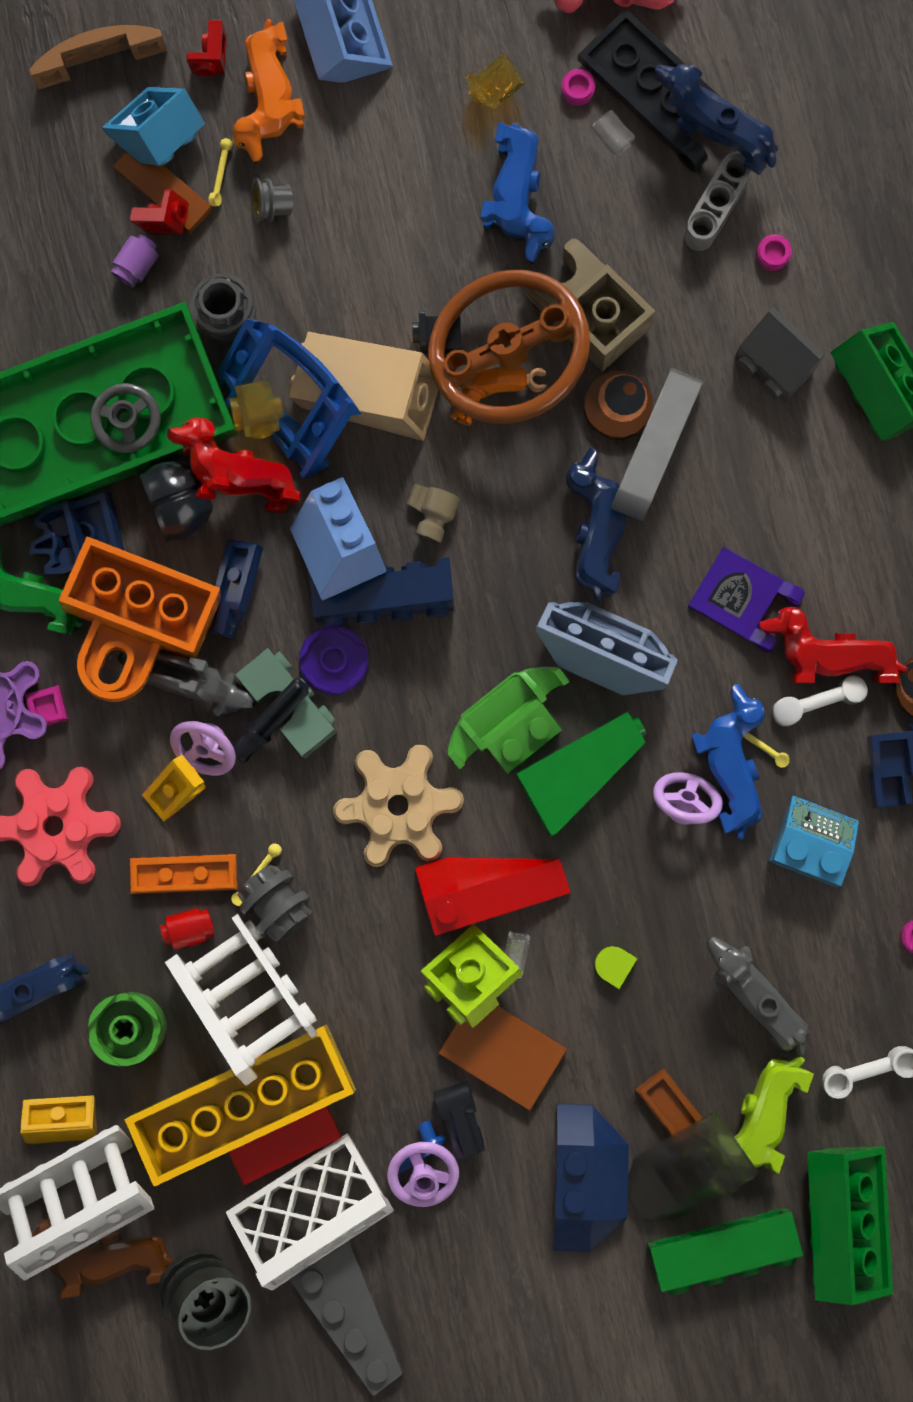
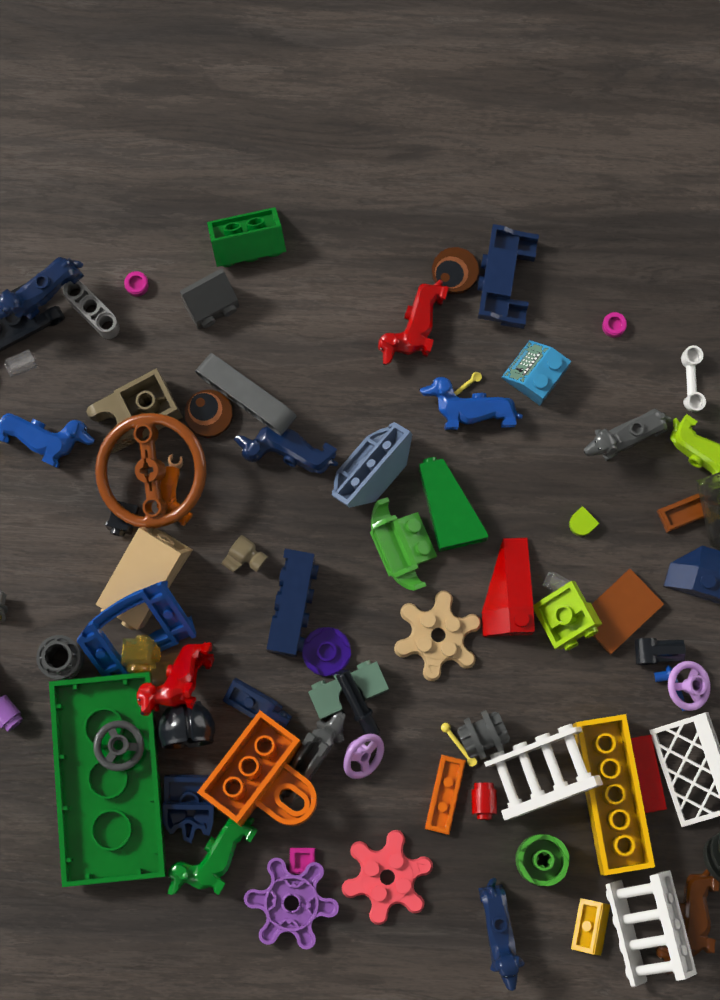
camera: 80 degrees left, 5 degrees down
(174, 788) = (385, 784): yellow slope -> none
(335, 540) = (248, 624): medium blue slope -> none
(685, 805) = (490, 445): lavender piece -> none
(739, 595) = (360, 372): dark purple flag -> none
(790, 710) = (446, 361): white bar -> none

